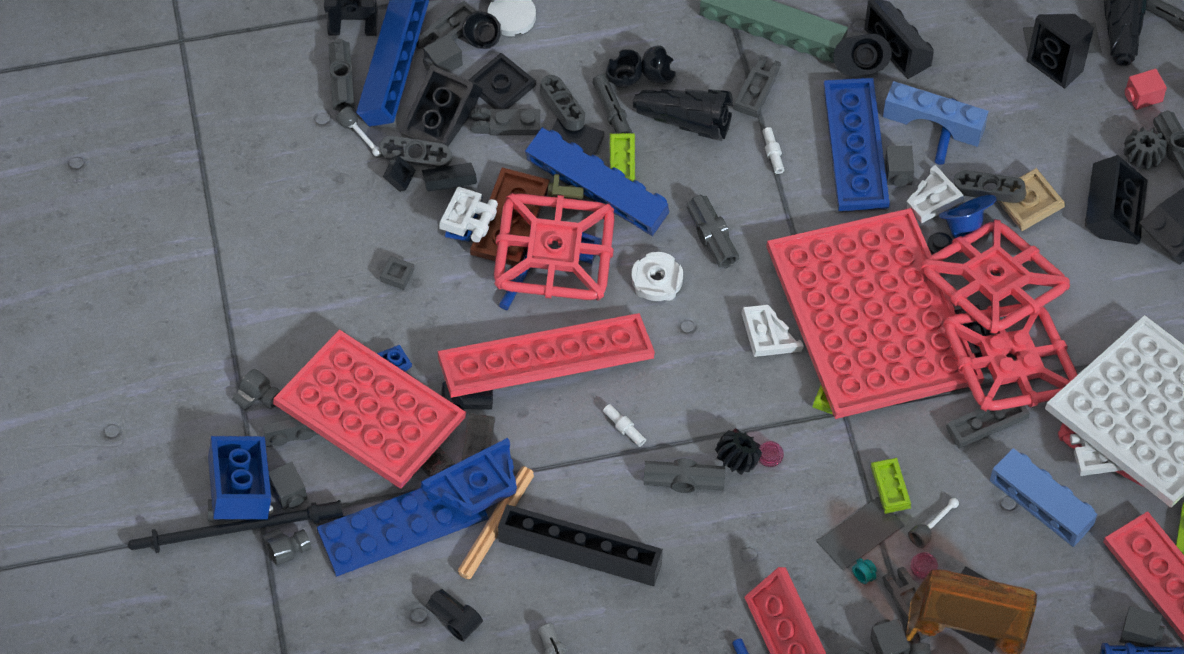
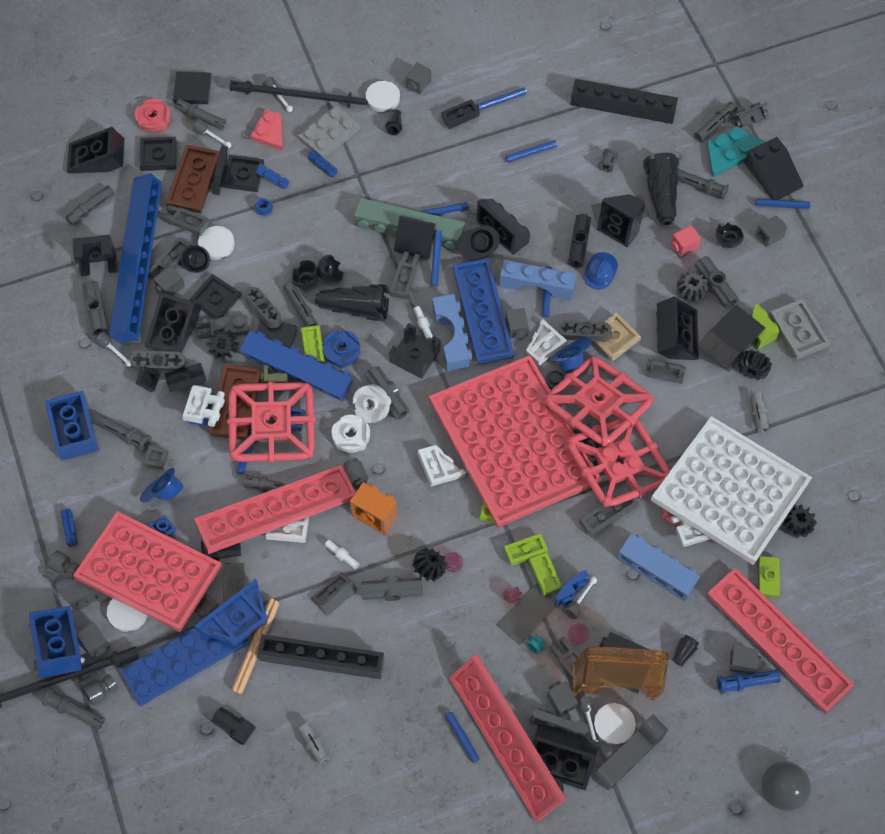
camera: 10 degrees left, 5 degrees up
(241, 560) = (64, 705): none -> dark grey pin
(273, 345) = (69, 527): none -> blue axle
(293, 217) = (71, 425): none -> blue brick
(331, 462) = (124, 617): none -> white tile
(367, 241) = (131, 435): none -> dark grey pin
(402, 312) = (163, 488): none -> blue piece
(512, 144) = (216, 343): none -> black gear
(529, 323) = (262, 484): none -> dark grey pin
(563, 388) = (292, 532): none -> white wing
(607, 473) = (334, 593): none -> dark grey slope
(656, 180) = (345, 357): none -> blue plate
(657, 325) = (355, 472): none -> dark grey brick
(674, 371) = (374, 508): none -> orange brick
(703, 240) = (380, 400): none -> white plate
(757, 185) = (415, 352): none -> black panel
(777, 37) = (414, 237): none -> black tile
(802, 68) = (436, 258): none -> blue bar
(806, 141) = (446, 313): none -> medium blue arch
(828, 8) = (447, 209): none -> blue bar
(842, 505) = (512, 595): none -> clear pink plate
(864, 451) = (525, 549): none -> lime plate
(917, 510) = (568, 591): none -> blue slope
(997, 80) = (577, 248): none -> black piece
(1023, 113) = (600, 270): none -> blue piece
(1065, 603) = (686, 648): none -> black cone
(1091, 252) = (665, 371): none -> dark grey hinge

